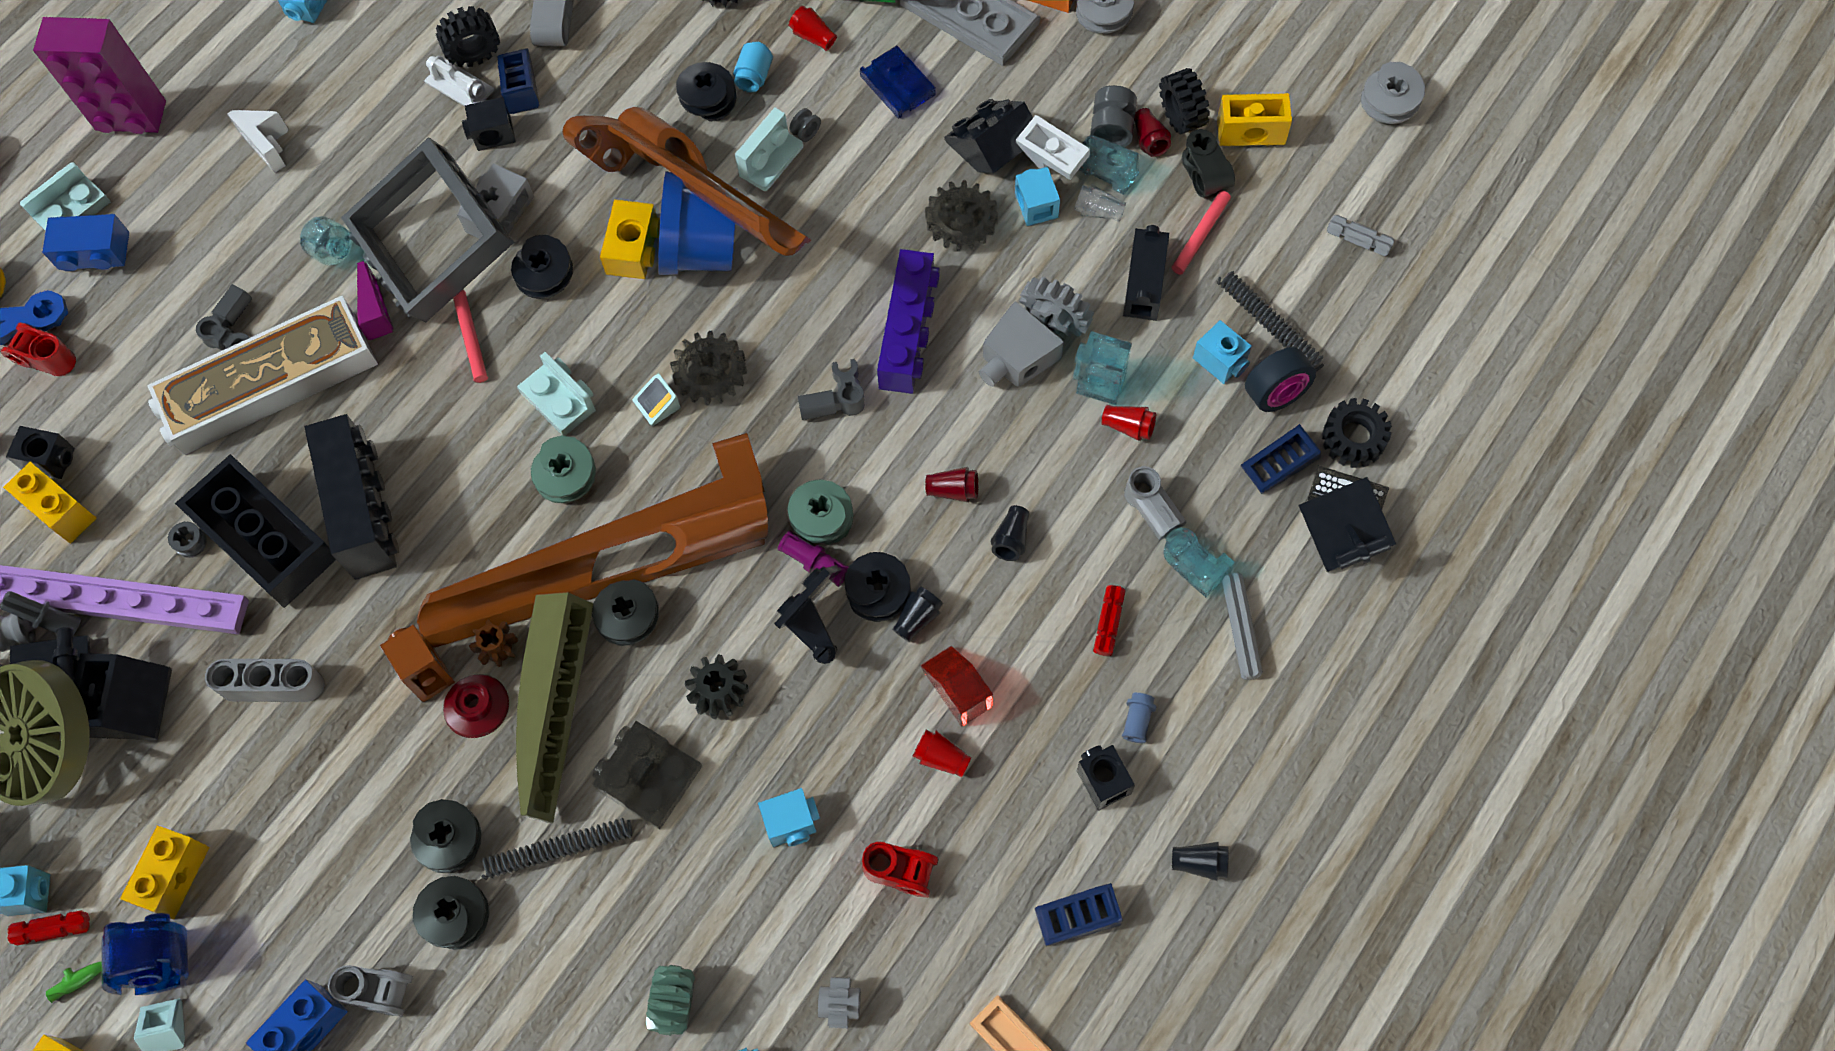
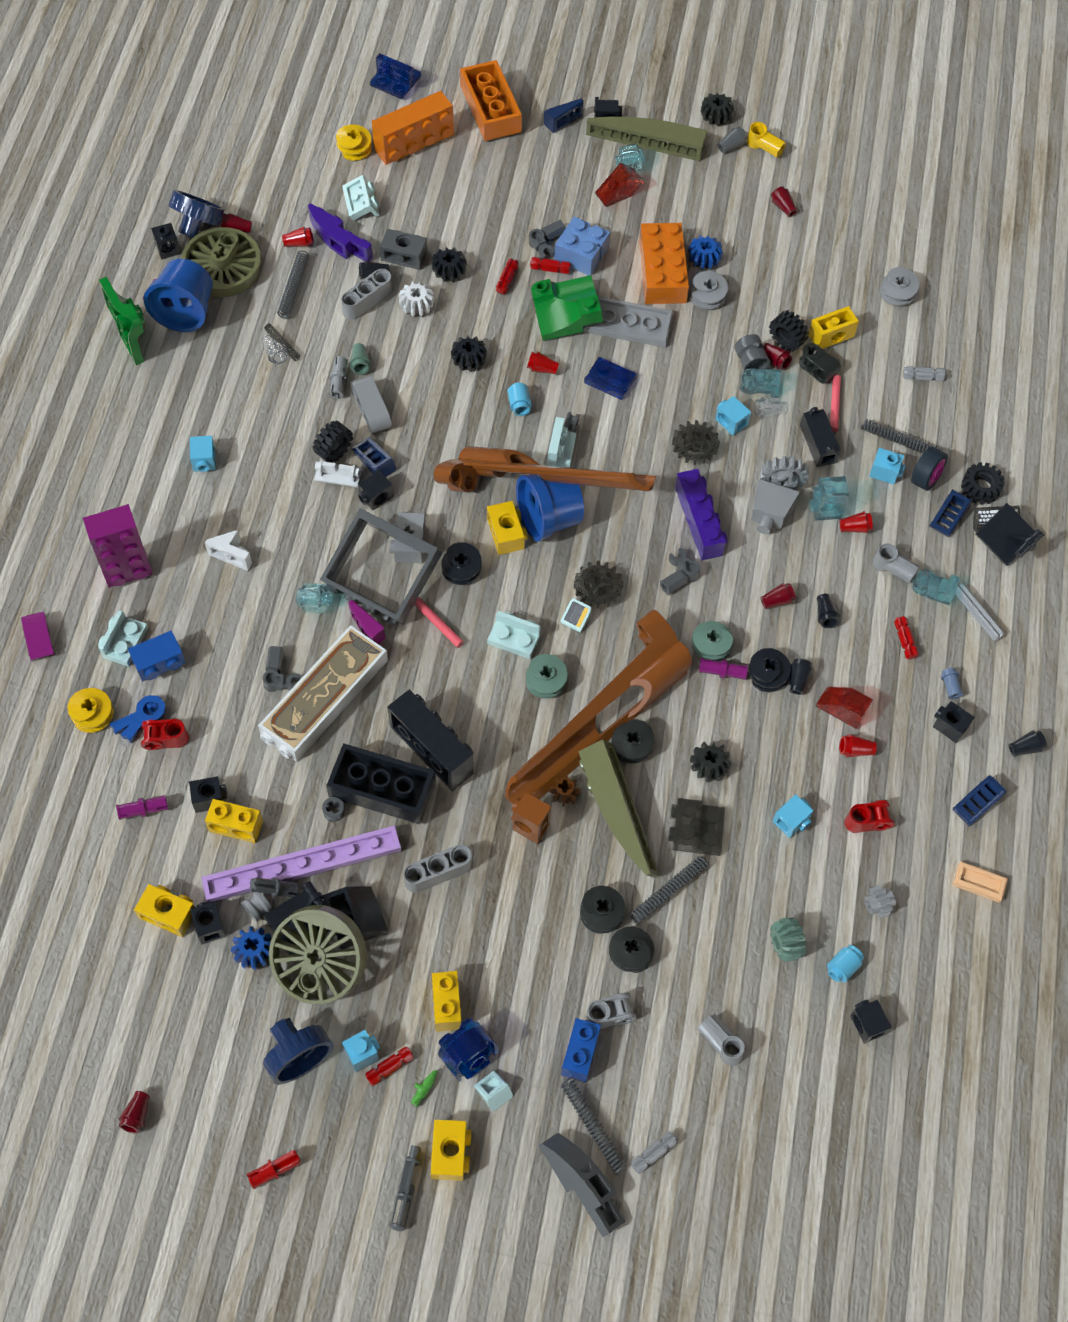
camera: 30 degrees left, 5 degrees down
(482, 718) = (567, 841): dark red piece -> none
(706, 90) = (499, 423): black piece -> none
(803, 618) = (741, 701): black plate -> none
(990, 134) = (687, 388): black slope -> none
(1052, 148) = (730, 383): white slope -> none

